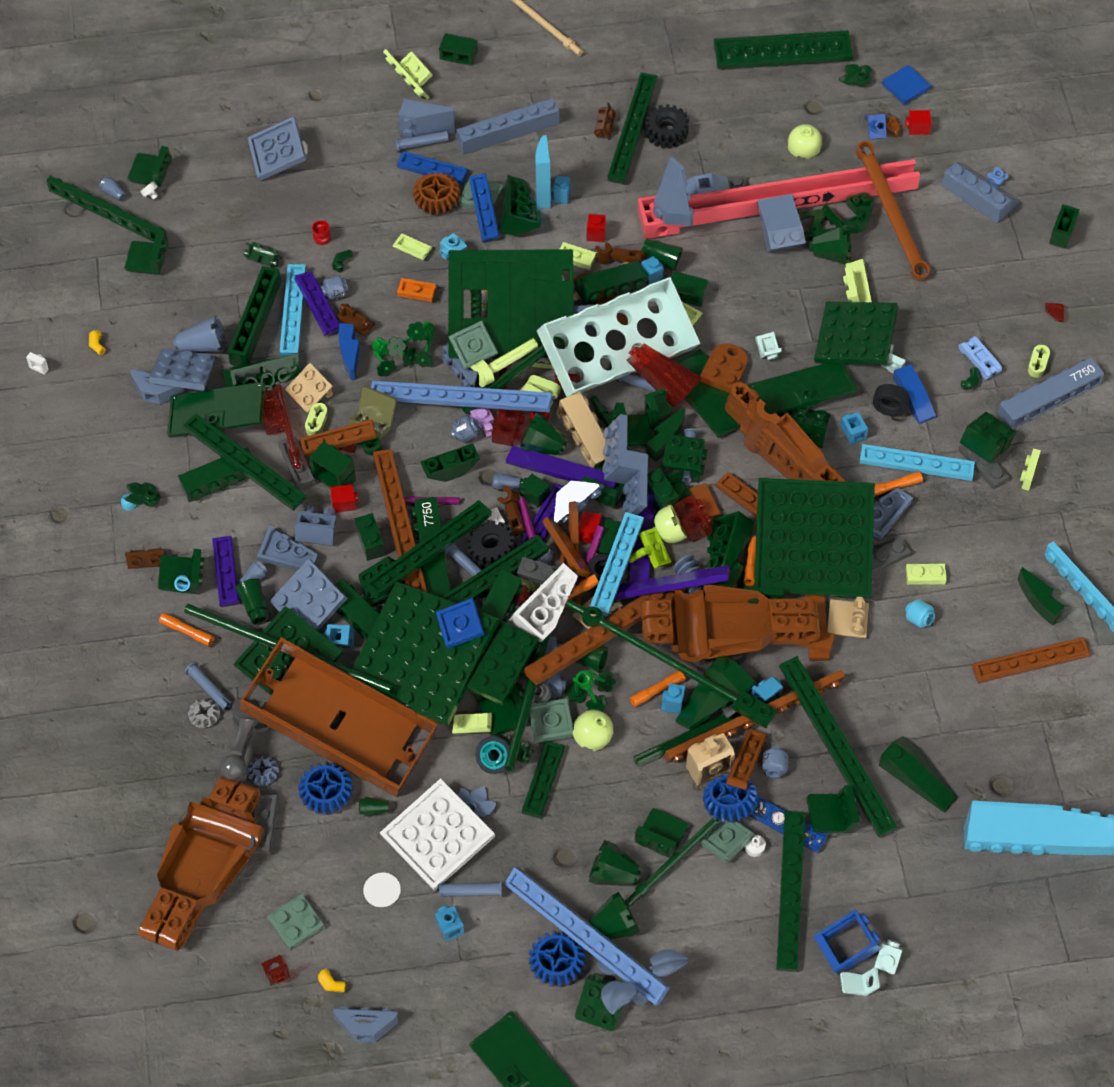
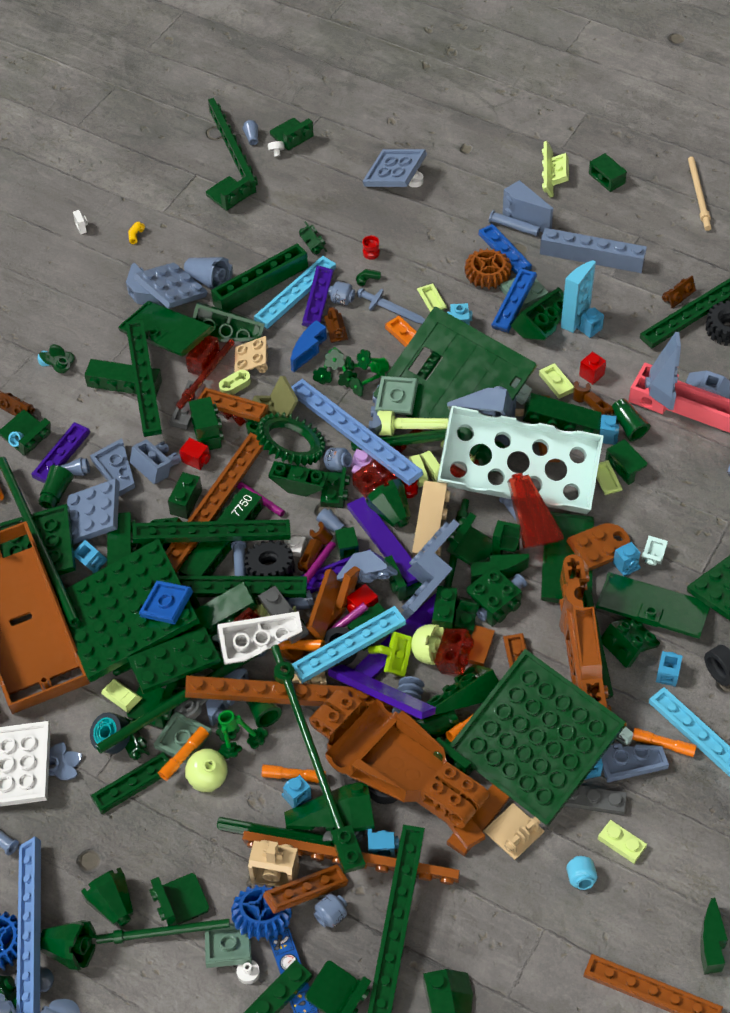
camera: 40 degrees right, 5 degrees down
(367, 276) = (377, 300): none -> sand blue sword
(440, 430) = (272, 421): none -> dark green piece
(489, 455) = (335, 489): none -> dark green bracket
(566, 718) = (175, 762): none -> orange piece
(567, 303) = (488, 402): none -> sand blue slope
(754, 365) = (627, 559): none -> dark azure brick

